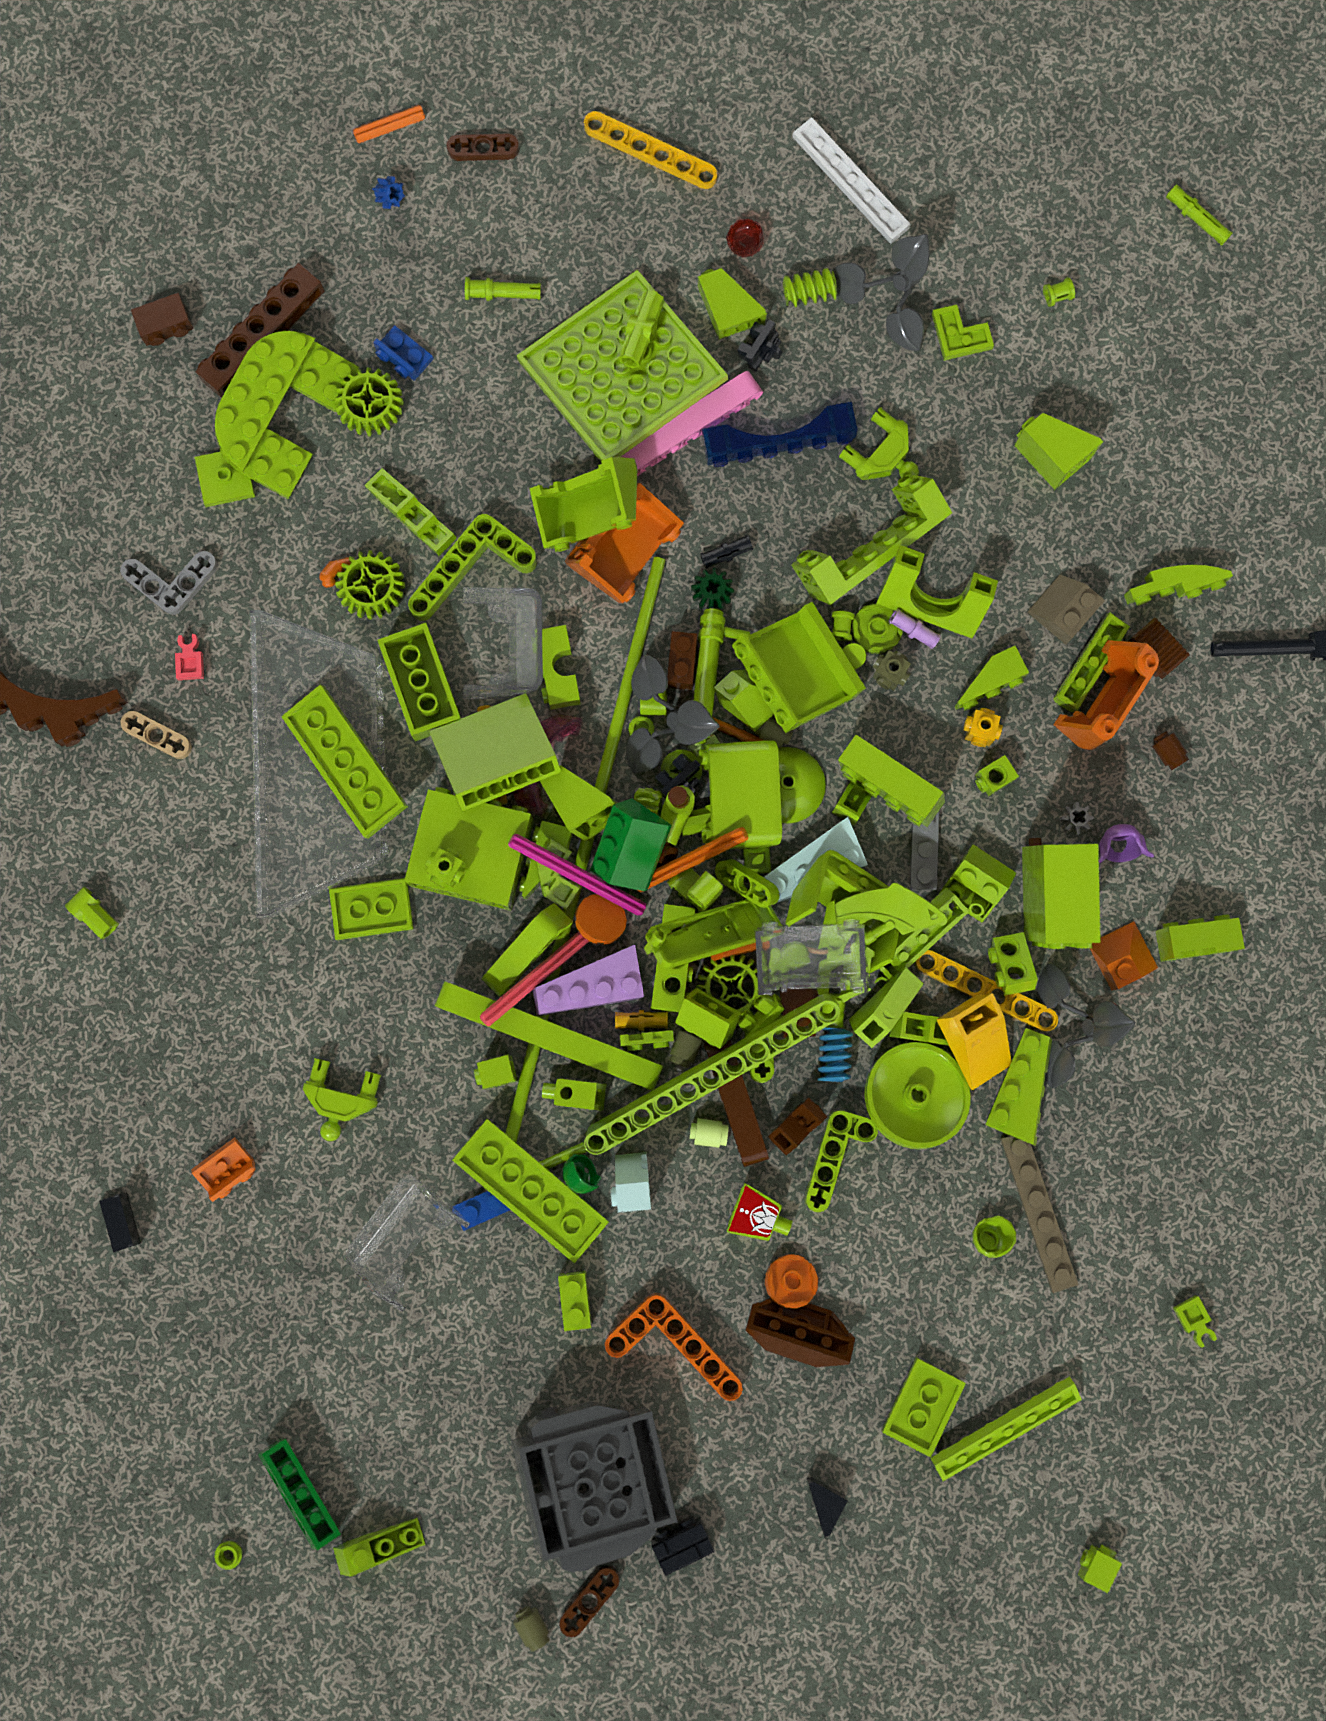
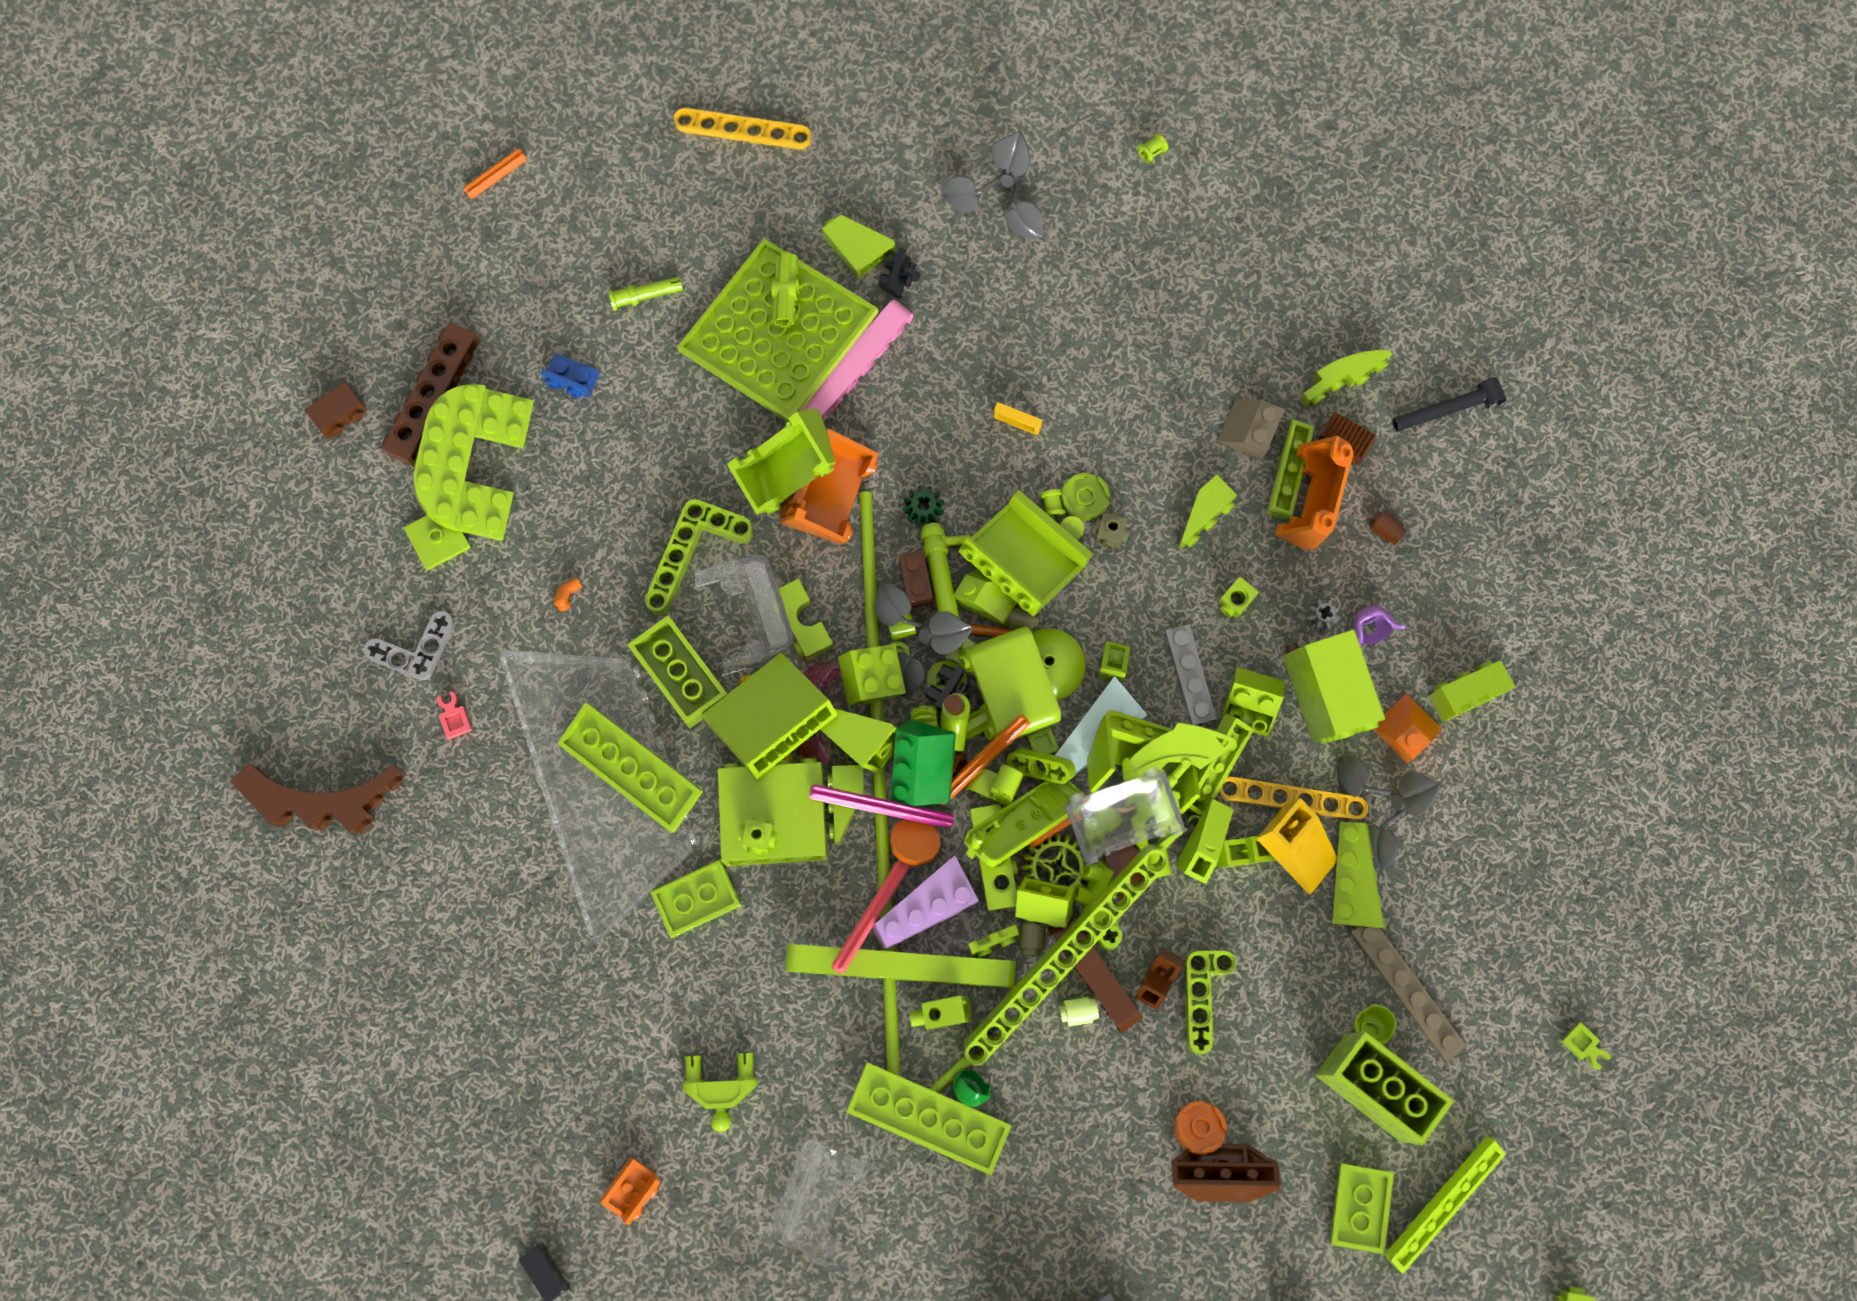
camera: 15 degrees left, 5 degrees down
(90, 911) = (429, 983): lime piece -> none
(176, 737) = (459, 807): tan beam -> none
(360, 587) = (611, 590): lime gear -> none
(388, 192) = (513, 234): blue gear -> none
(390, 404) = (542, 431): lime gear -> none
(410, 511) = (621, 518): lime slope -> none
(475, 139) = (580, 164): reddish brown beam -> none
(480, 1209) = (887, 1151): blue plate -> none
(495, 1072) = (861, 1016): lime brick -> none
(526, 949) = (854, 891): lime beam -> none
(552, 884) = (862, 823): lime tile -> none
(575, 1300) = (1003, 1211): lime brick -> none
(608, 742) = (871, 674): none -> lime brick
(631, 1183) = (1022, 1080): light aqua wedge -> none
(641, 1020) = (982, 924): yellow pin -> none
(679, 1340) = (1113, 1216): orange beam -> none
(726, 551) = (925, 468): black pin -> none
(728, 444) = (897, 370): clear blue arch -> none
(749, 233) = (857, 177): clear red hair -> none
(757, 1215) = (1148, 1075): torso -> none
(810, 287) = (926, 207): lime piece -> none
(834, 529) = (1017, 418): none -> yellow tile
(835, 1055) = (1173, 901): dark azure piece -> none
(851, 180) = (933, 103): white plate -> none
(888, 455) = (1045, 338): lime connector -> none
(891, 781) = (1144, 631): lime brick -> none
(914, 628) = (1119, 486): lavender pin -> none
(917, 1095) = (1261, 915): lime dish -> none
(923, 509) = (1094, 378): lime plate -> none
(955, 339) = (1073, 216): lime plate -> none
(957, 614) = (1154, 462): lime arch -> none
(976, 734) = (1208, 565): yellow brick -> none
(982, 1301) = (1384, 1088): none -> lime brick
(1018, 963) = (1314, 763): lime brick -> none
(1055, 447) = (1195, 286): lime slope -> none
(1191, 208) = (1254, 44): lime pin -> none

